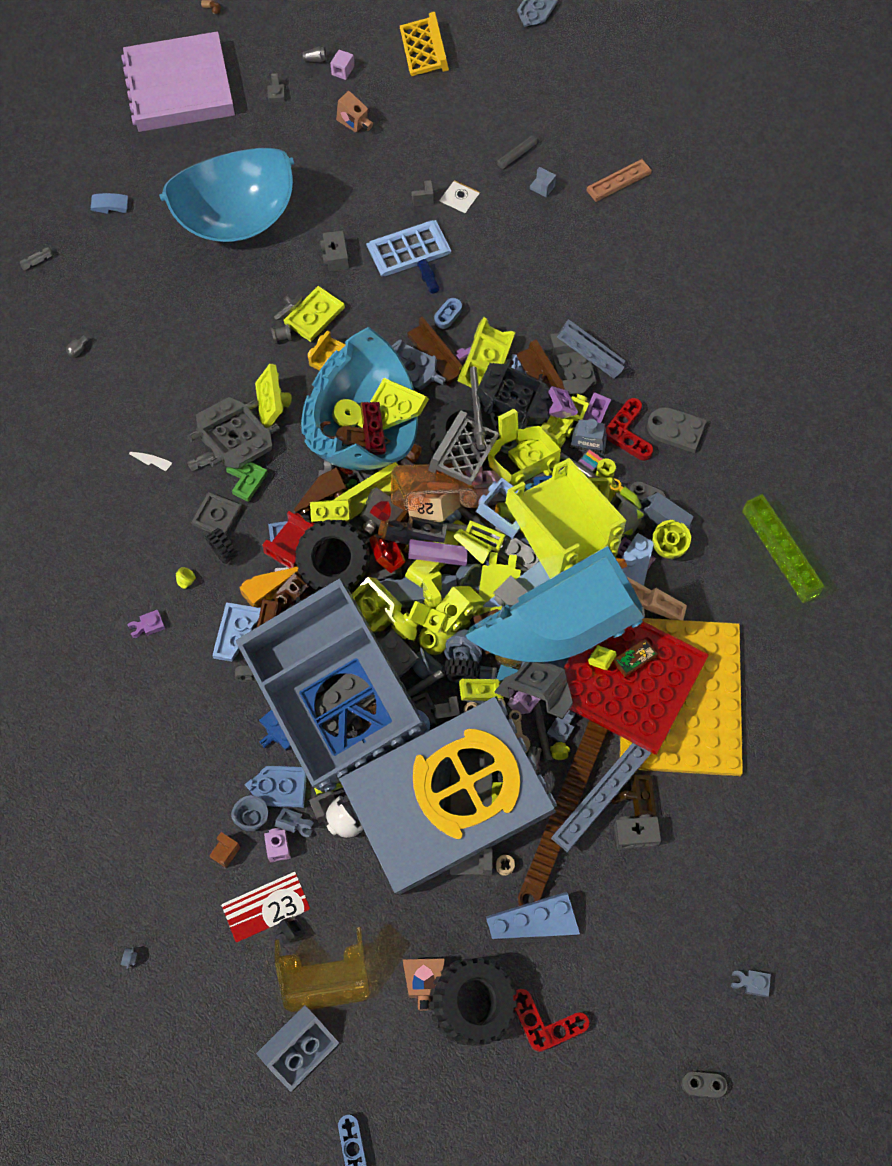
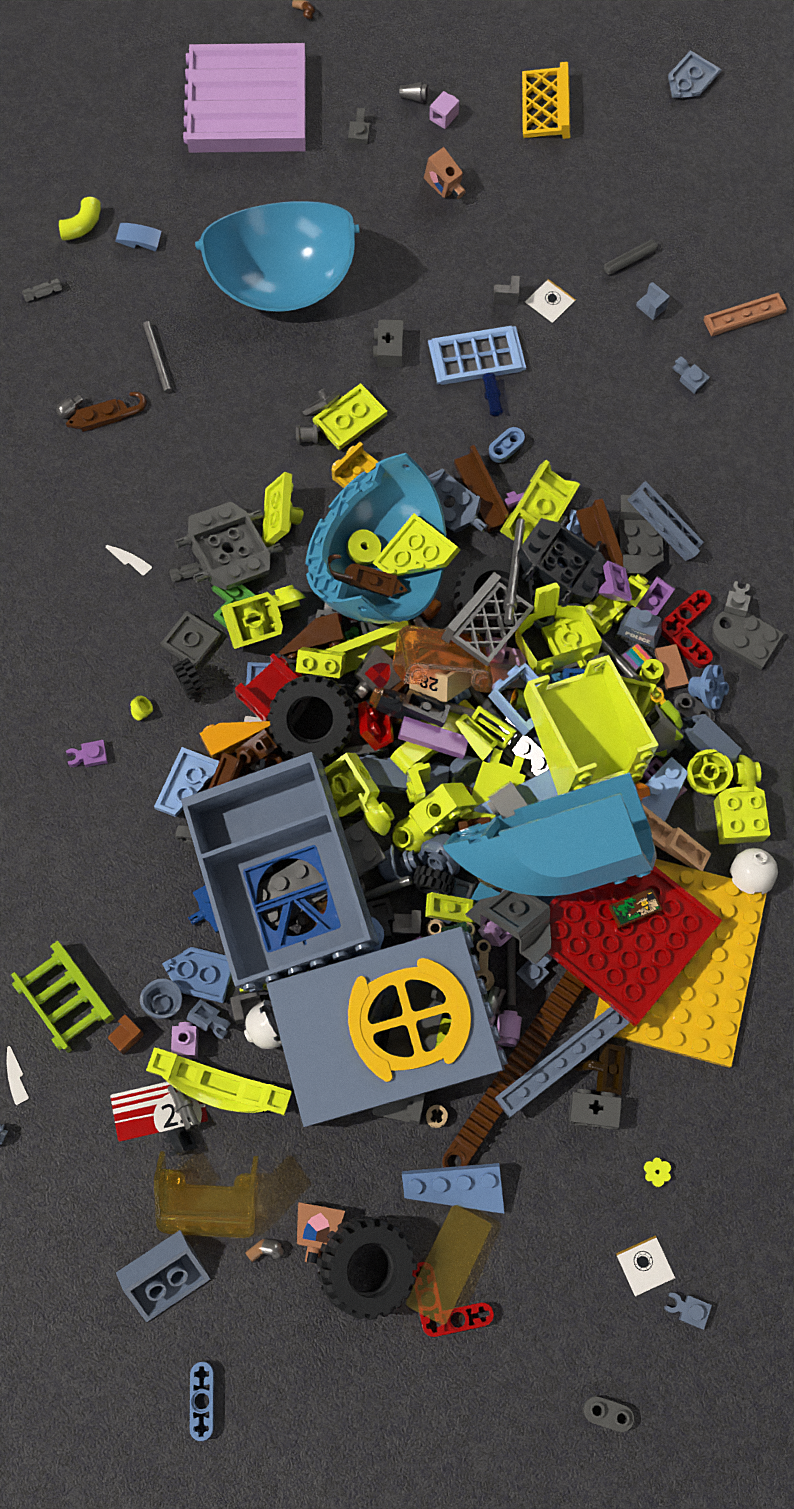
camera: 10 degrees right, 5 degrees up
(60, 199) = (83, 221): none -> neon yellow cylinder
(107, 347) = (105, 413): none -> reddish brown plate
(133, 904) = (14, 1074): none -> white sticker
(144, 295) = (157, 357): none -> flat silver bar
(169, 808) = (71, 976): none -> lime fence
(270, 483) = (259, 615): none -> neon yellow brick
(287, 900) = (184, 1108): none -> dark grey pin
(313, 877) = (216, 1086): none -> neon yellow piece
(373, 436) = (389, 583): dark red tile -> none
(382, 1004) = (267, 1247): none -> arm
(423, 614) = (401, 808): neon yellow bracket -> none
(438, 658) = (409, 861): none -> sand blue plate
(541, 987) = (448, 1264): none -> clear yellow piece
(552, 778) = (509, 1028): none -> lavender brick
(559, 751) = (526, 997): neon yellow plate -> none
(586, 235) = (691, 377): none -> sand blue plate
(602, 657) = (596, 901): neon yellow tile -> none
(624, 467) = (674, 672): none -> nougat tile
(655, 472) = (709, 686): none -> medium blue plate
(663, 401) = (737, 600): none -> plate
(704, 564) = (742, 809): none -> neon yellow brick
(705, 869) = (663, 1168): none -> neon yellow plant
(707, 953) = (645, 1265): none -> white sticker
(725, 611) = (754, 871): none -> white cylinder

